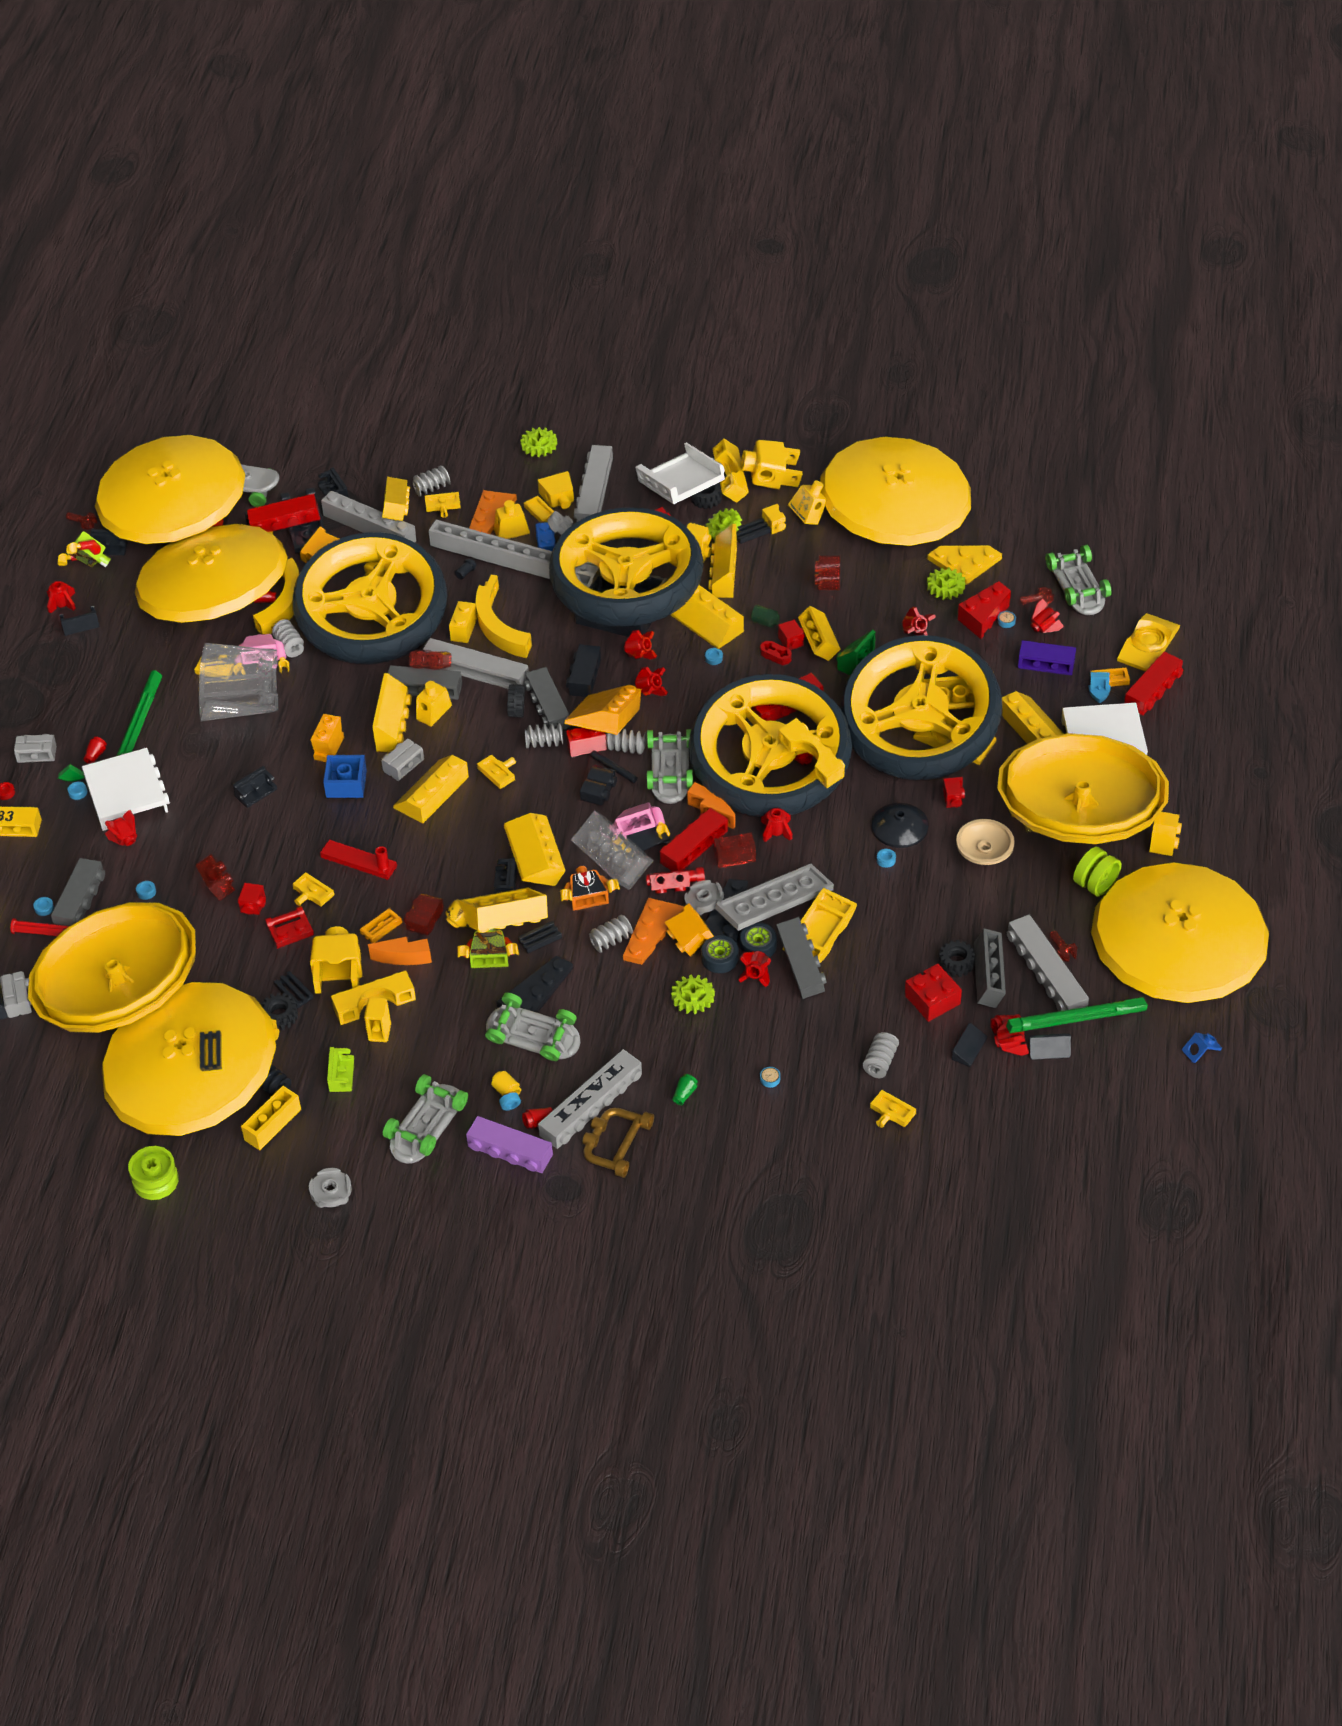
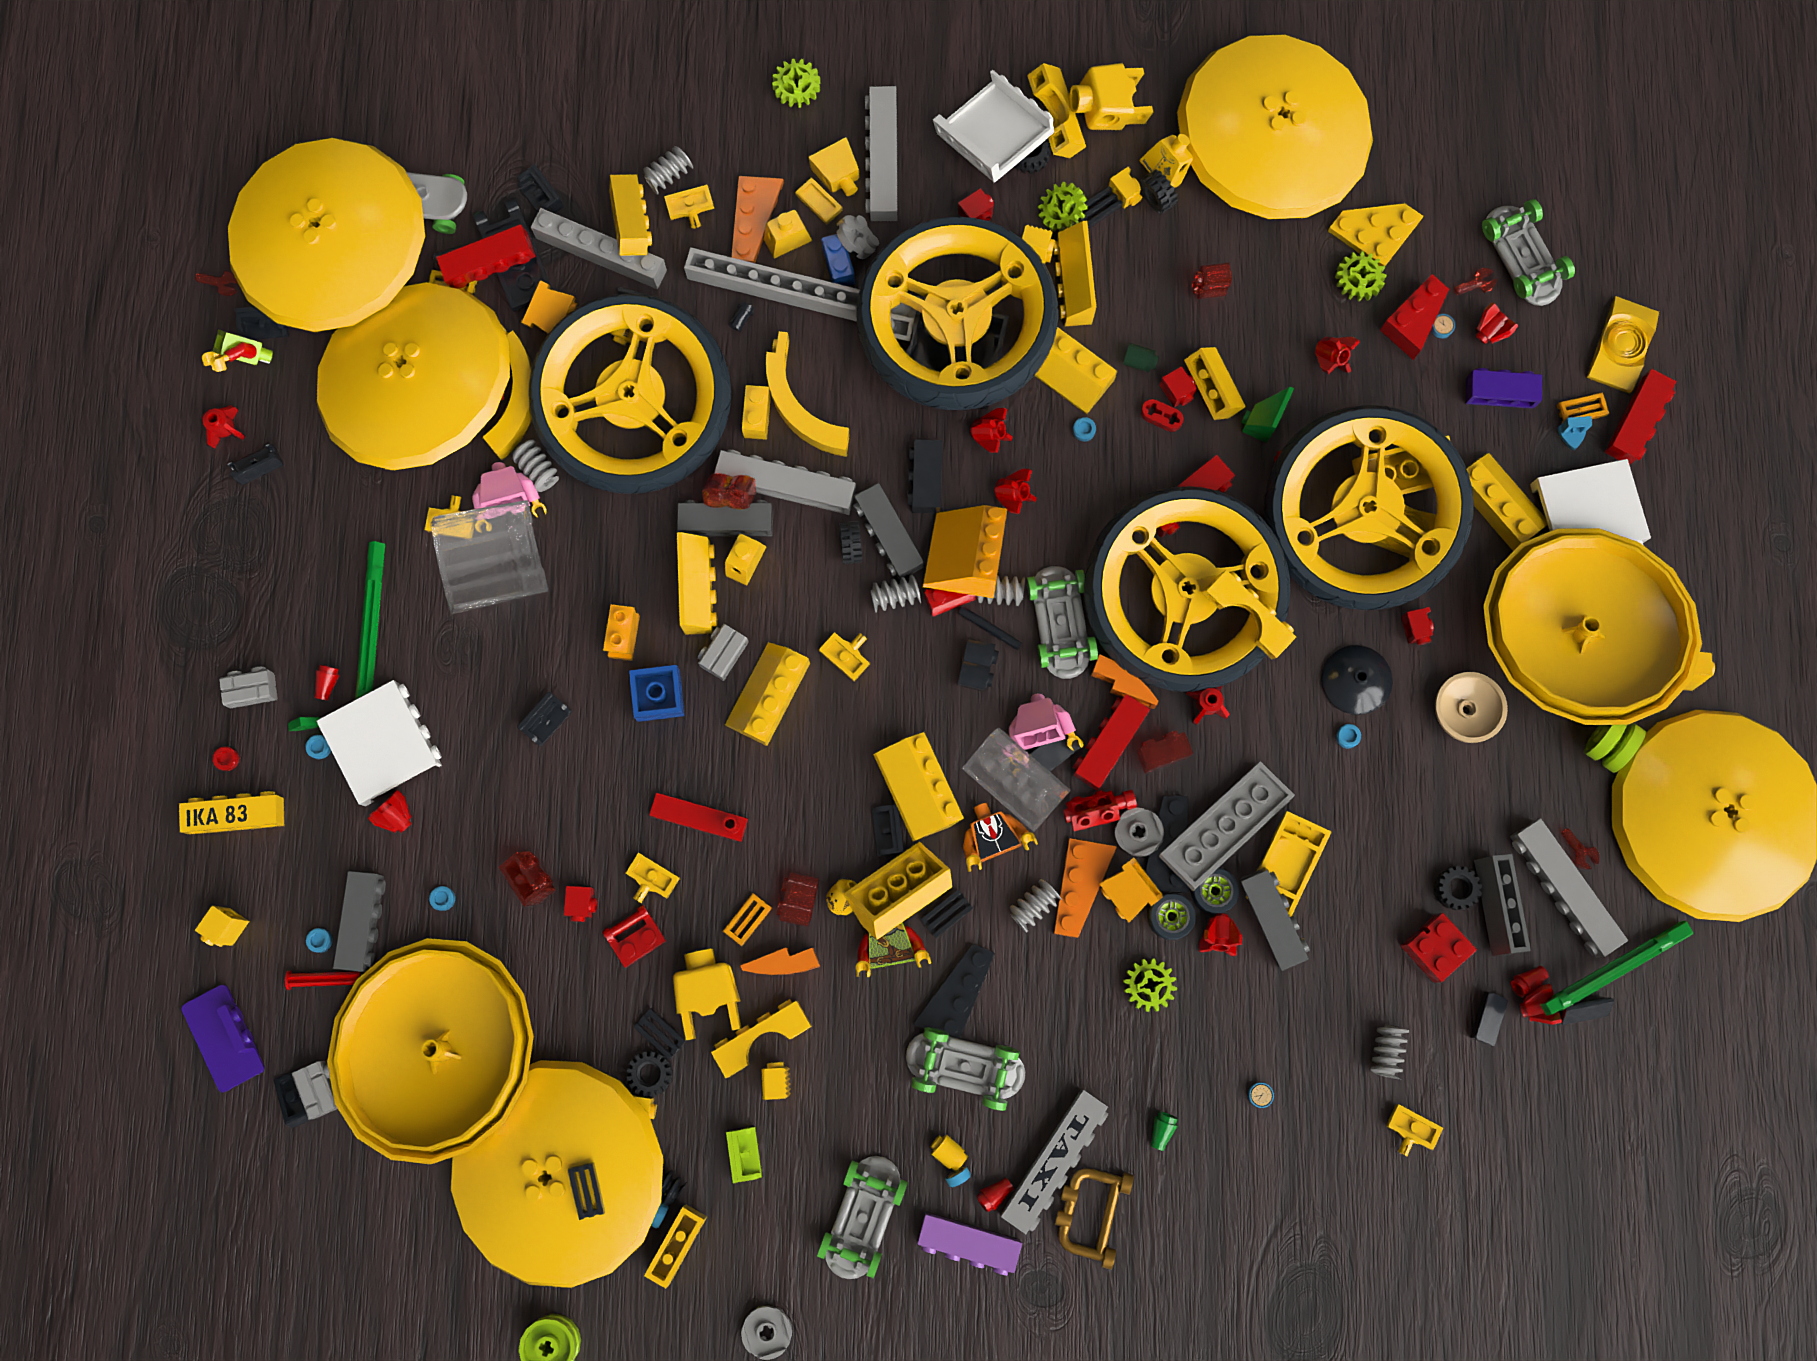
camera: 10 degrees left, 30 degrees up
(261, 1098) = (661, 1212): none -> dark azure tile
(797, 520) = (1158, 191): none -> black tyre
(1204, 1042) = (1768, 982): blue bracket -> none

